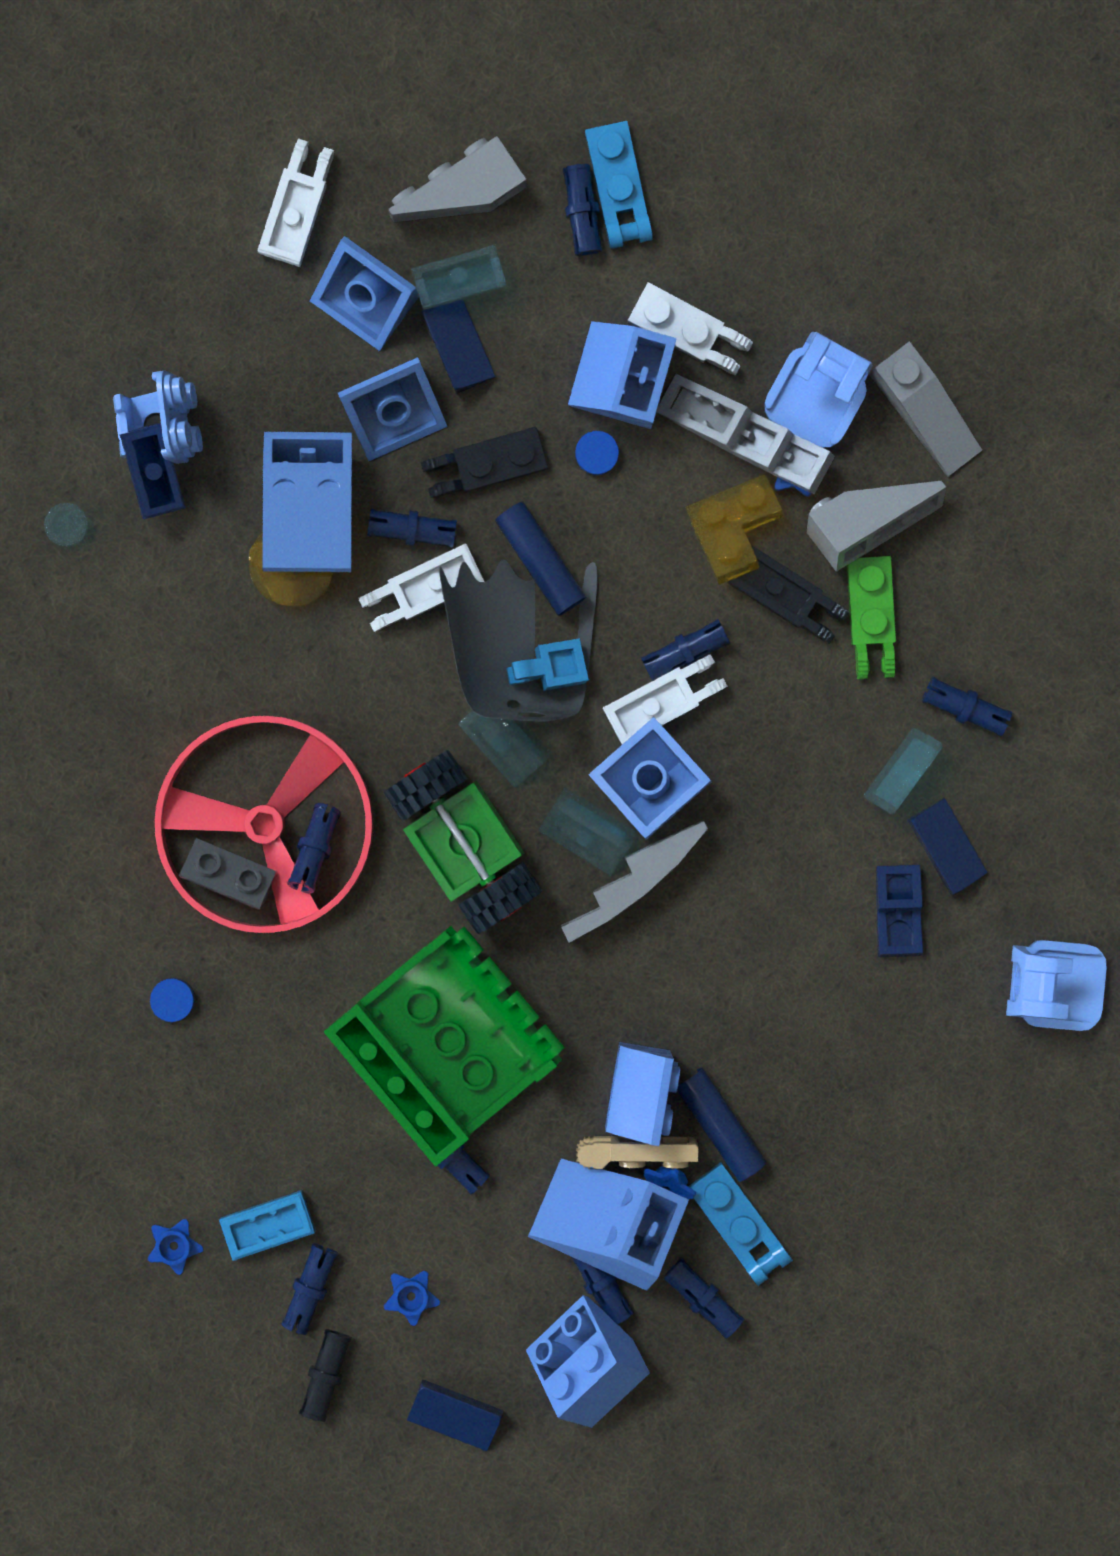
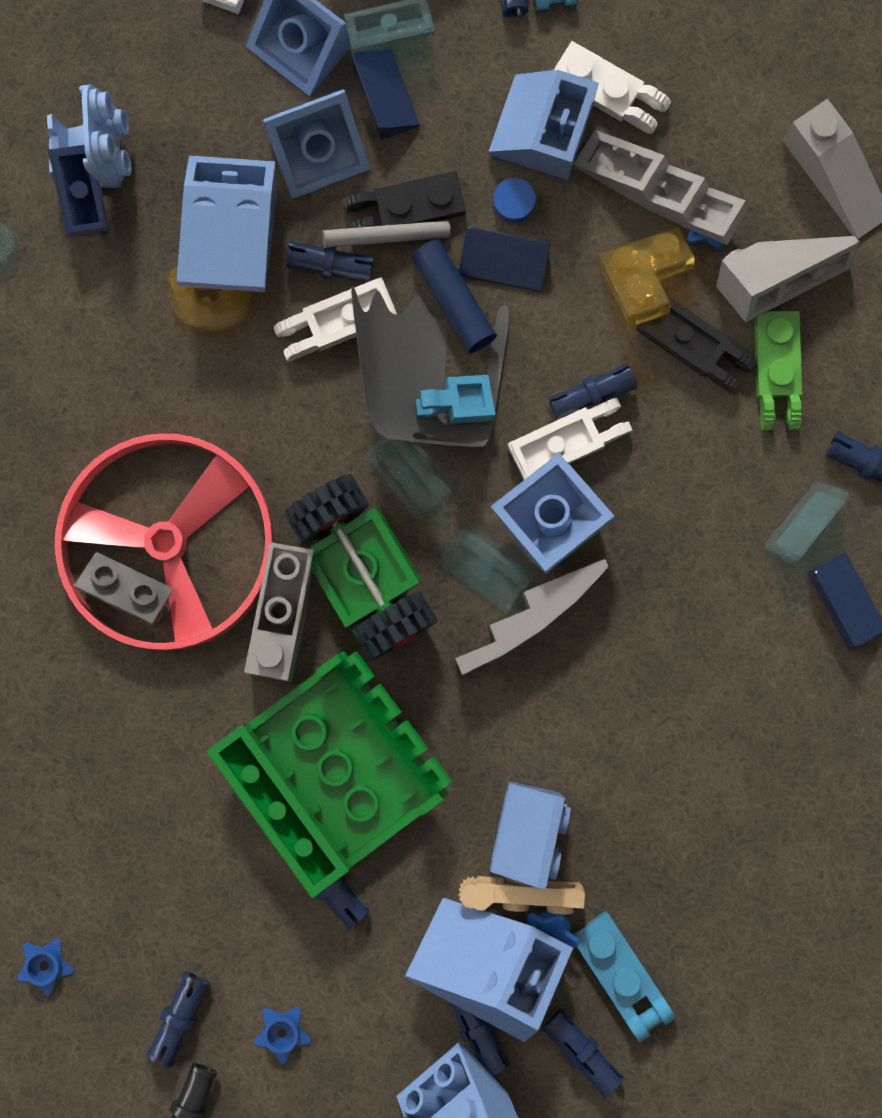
camera: 10 degrees right, 5 degrees down
(172, 999) = (61, 713): blue tile -> none
(267, 1225) = (139, 950): dark azure plate -> none
(314, 848) = (212, 567): dark blue pin -> none
(385, 891) = (280, 613): none -> light grey slope
(468, 497) = (385, 234): none -> light grey bar
(589, 517) = (504, 259): none -> dark blue slope
(721, 1125) = (609, 873): dark blue piece -> none
(818, 391) = (737, 142): light blue piece -> none
(899, 911) = (795, 662): dark blue slope -> none

